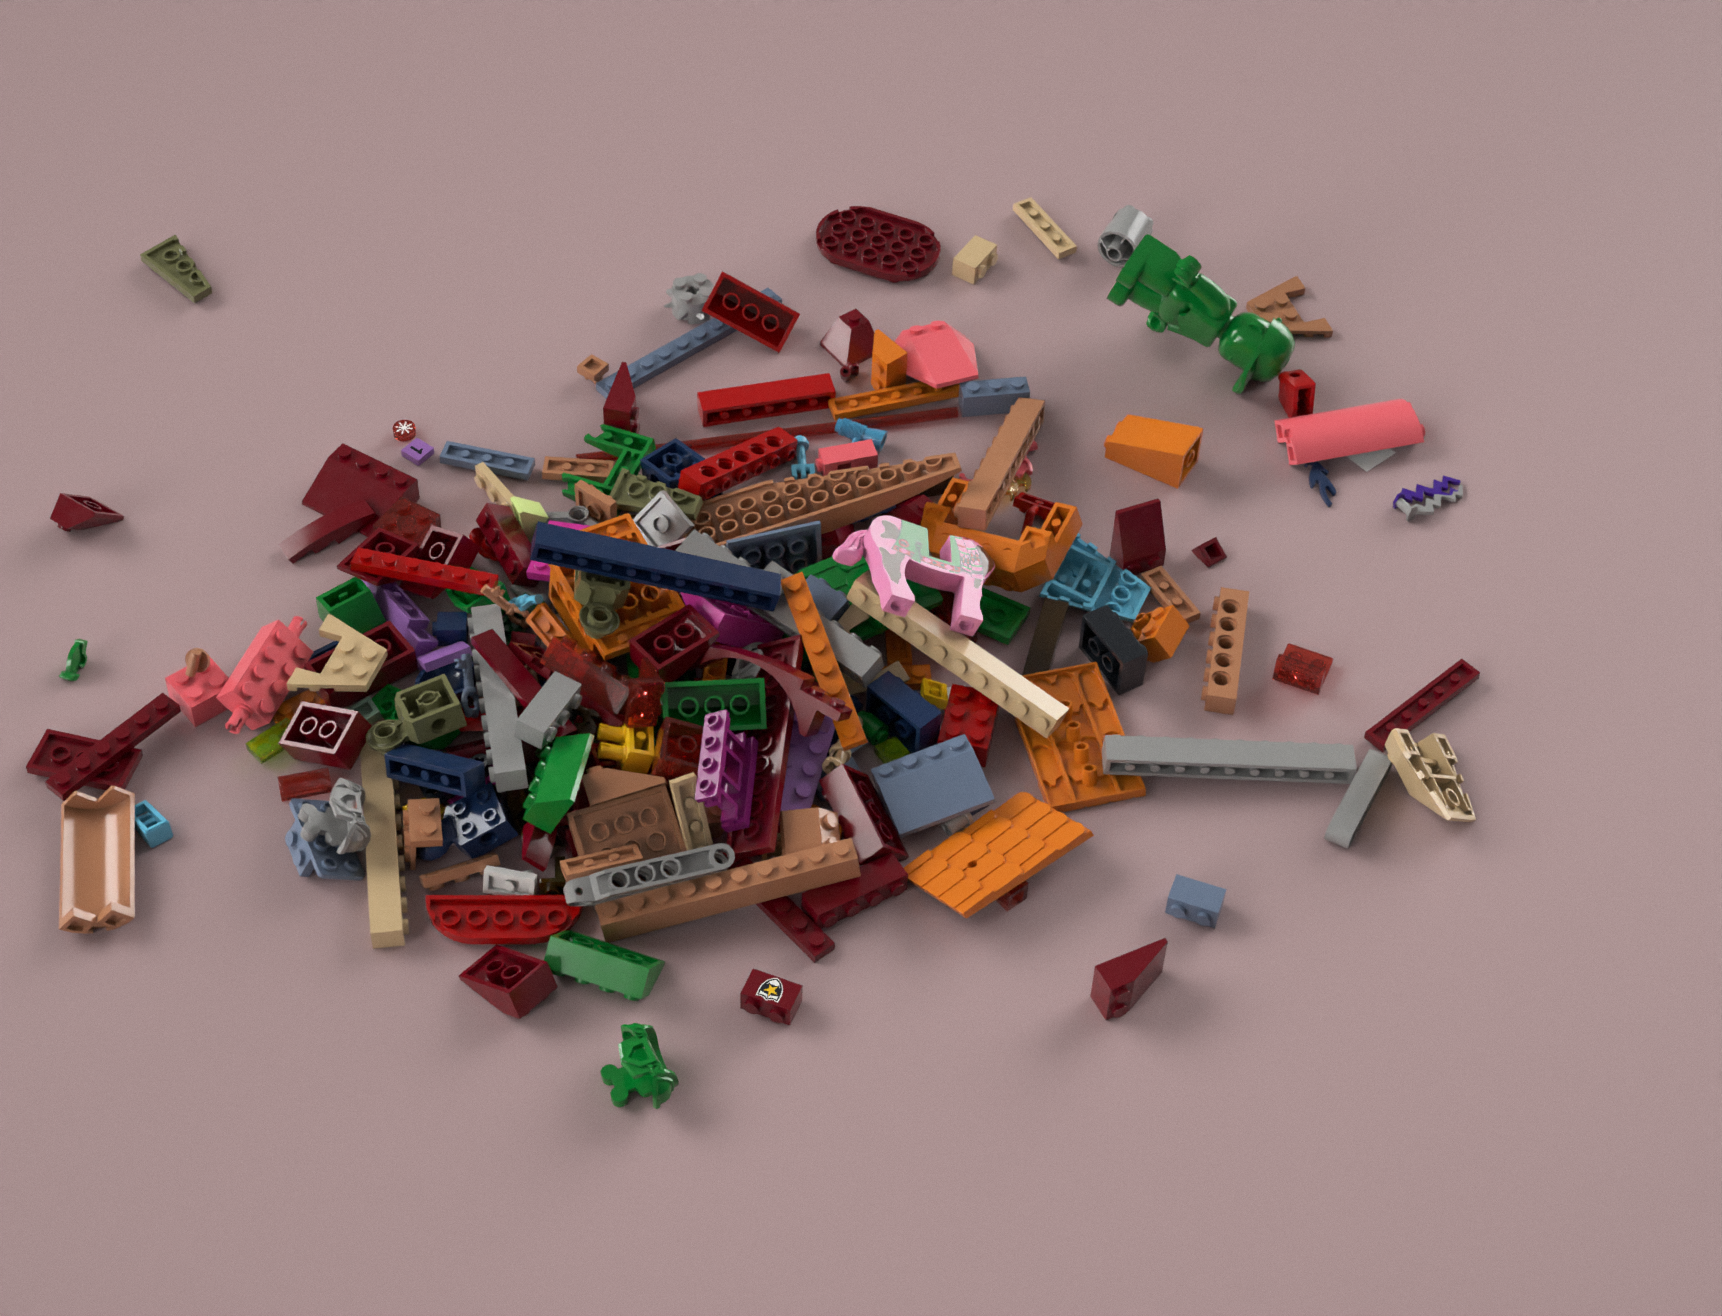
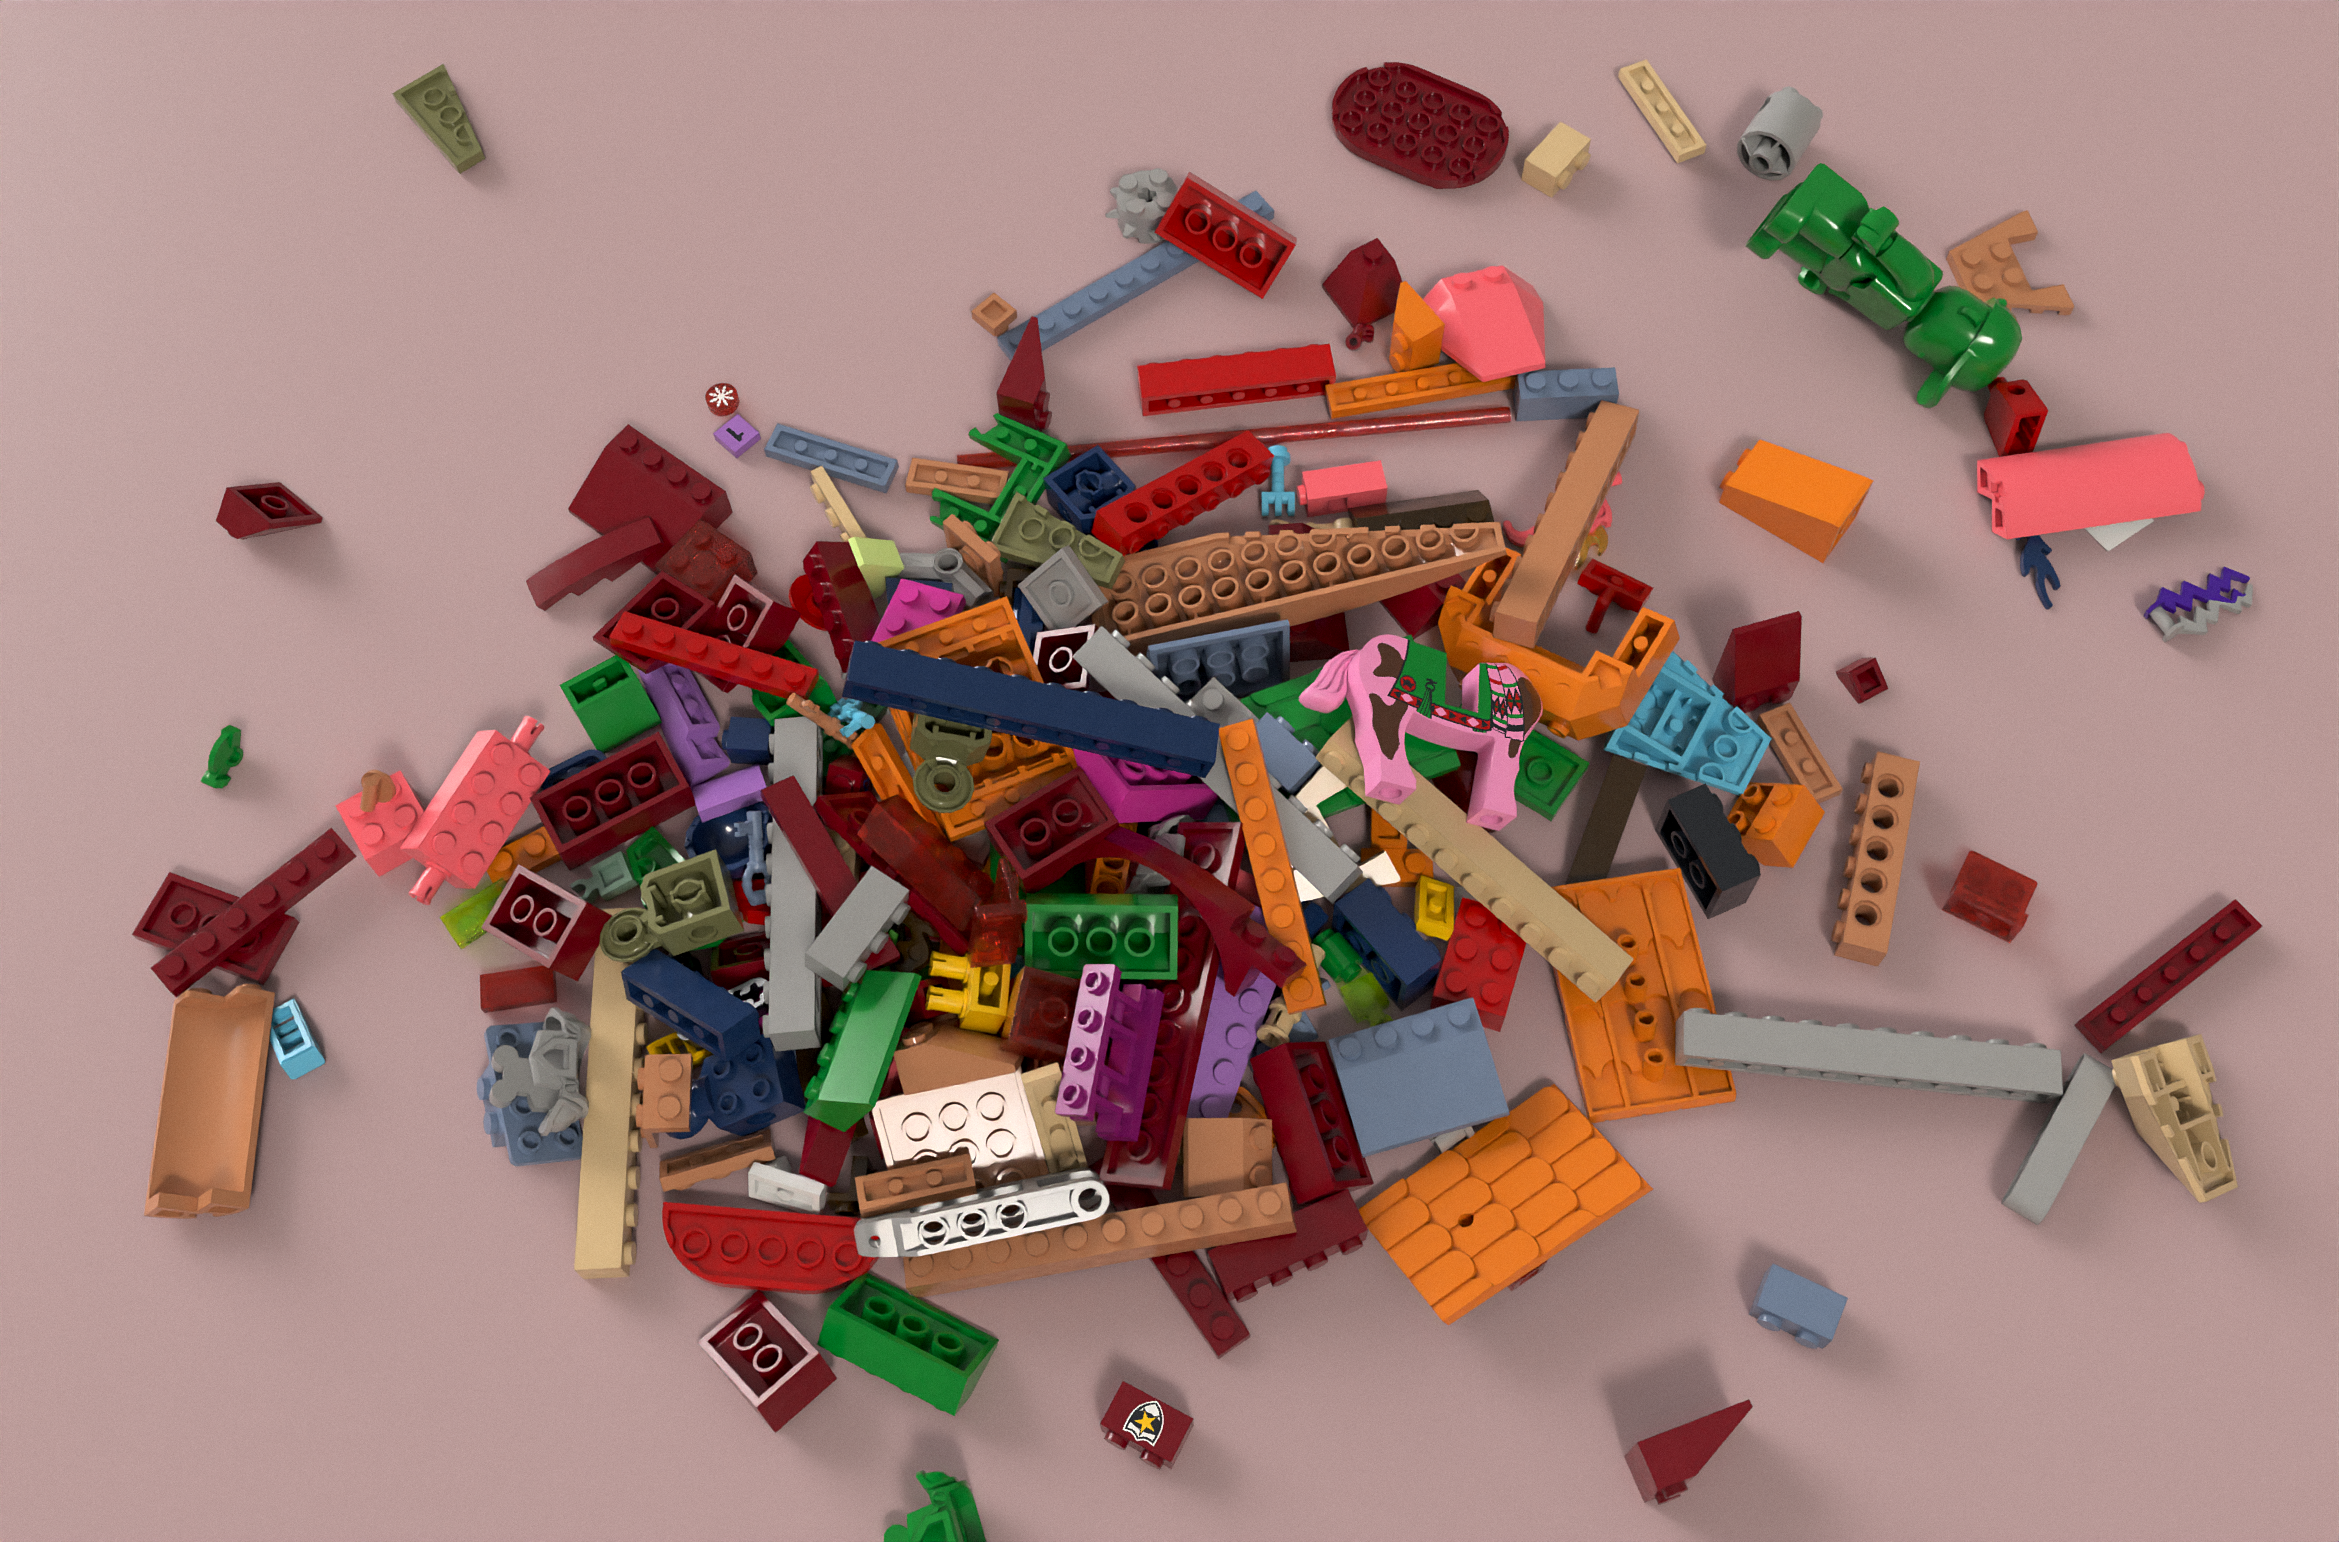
camera: 10 degrees right, 15 degrees up
(350, 665) = (593, 808): tan wing -> none
(858, 432) = (1366, 445): dark azure piece -> none

